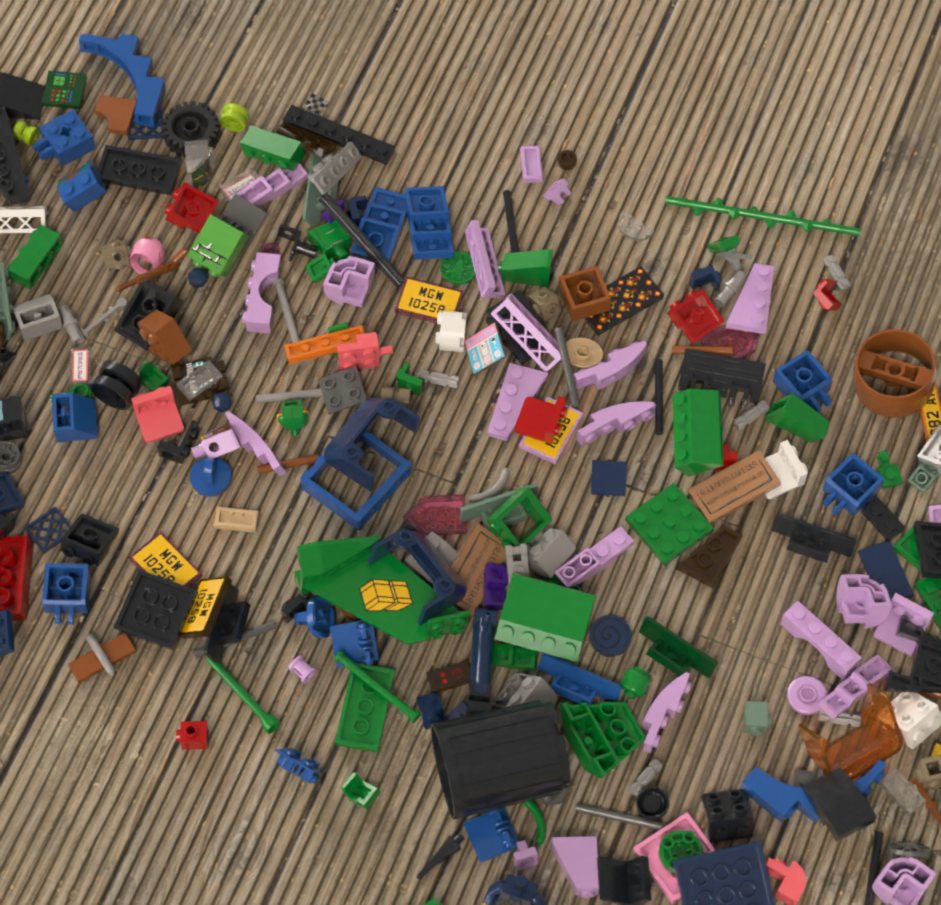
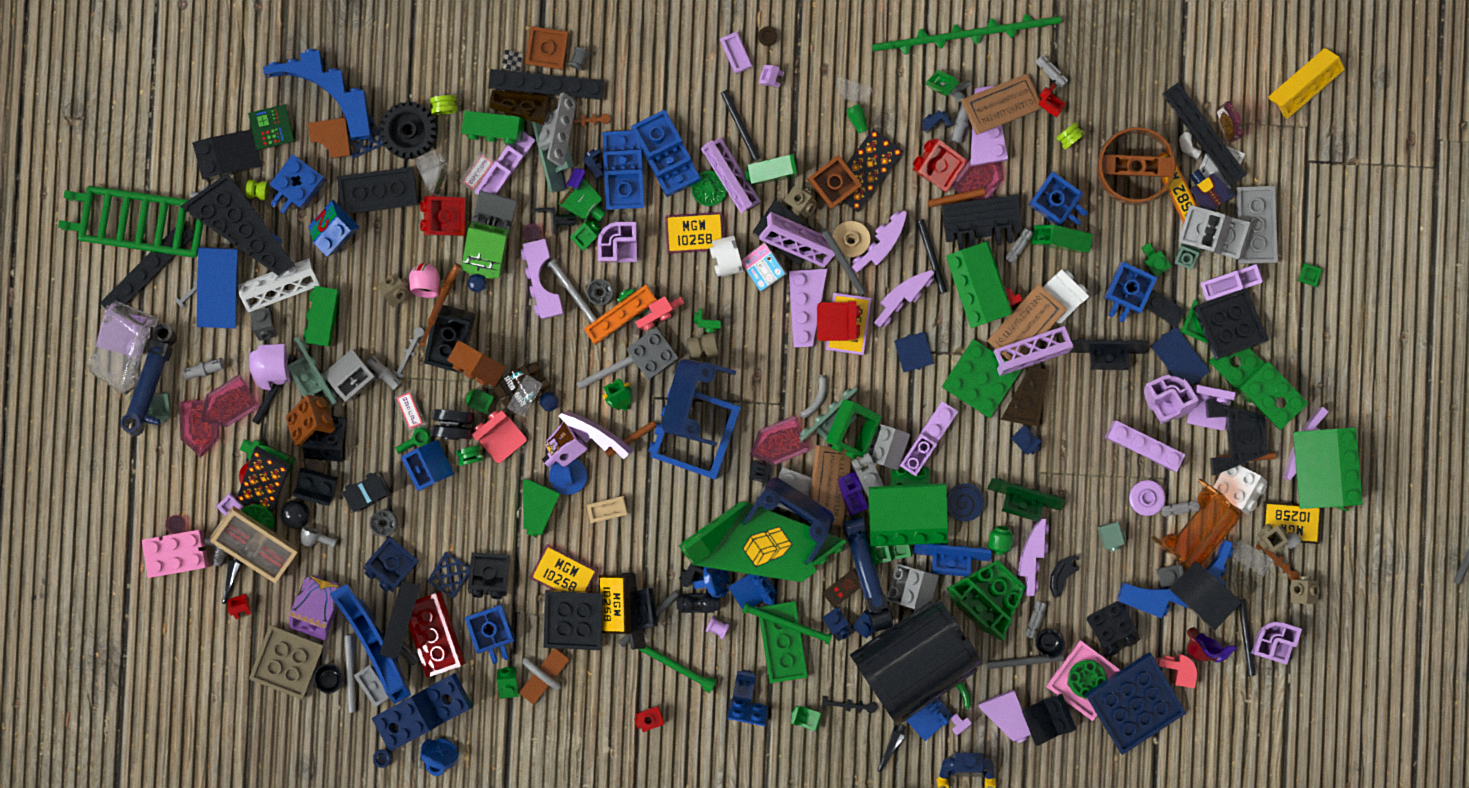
camera: 20 degrees left, 25 degrees up
(60, 650) = (507, 682): none -> green bracket
(121, 421) = (468, 453): none -> green wheel
(167, 492) = (537, 507): none -> green slope
(177, 454) = (523, 464): black bracket -> none
(302, 641) = (707, 603): none -> black piece
(307, 736) = (744, 685): none -> dark blue bracket
(317, 315) = (592, 292): none -> dark grey wheel
(352, 105) = (546, 48): none -> dark orange tile
(361, 239) = (614, 200): black axle -> none
(378, 121) = (579, 58): none -> dark grey bush
(382, 180) = (605, 119): none -> dark orange piece
(433, 808) = (871, 708): none -> black piece
(439, 378) = (732, 308): light grey axle -> none
(628, 249) = (857, 117): none -> green cone
(689, 739) = (1060, 573): none -> black piece
(696, 597) = (1026, 440): none -> dark blue bracket
(733, 514) = (1036, 357): none -> lavender fence
(776, 280) = (1001, 104): none -> medium nougat tile
(823, 869) = (1205, 648): none -> hair
(836, 330) = (1070, 135): none -> lime wheel
(855, 686) = (1186, 477): lavender slope -> none
(909, 849) = (1271, 609): dark grey wheel -> none

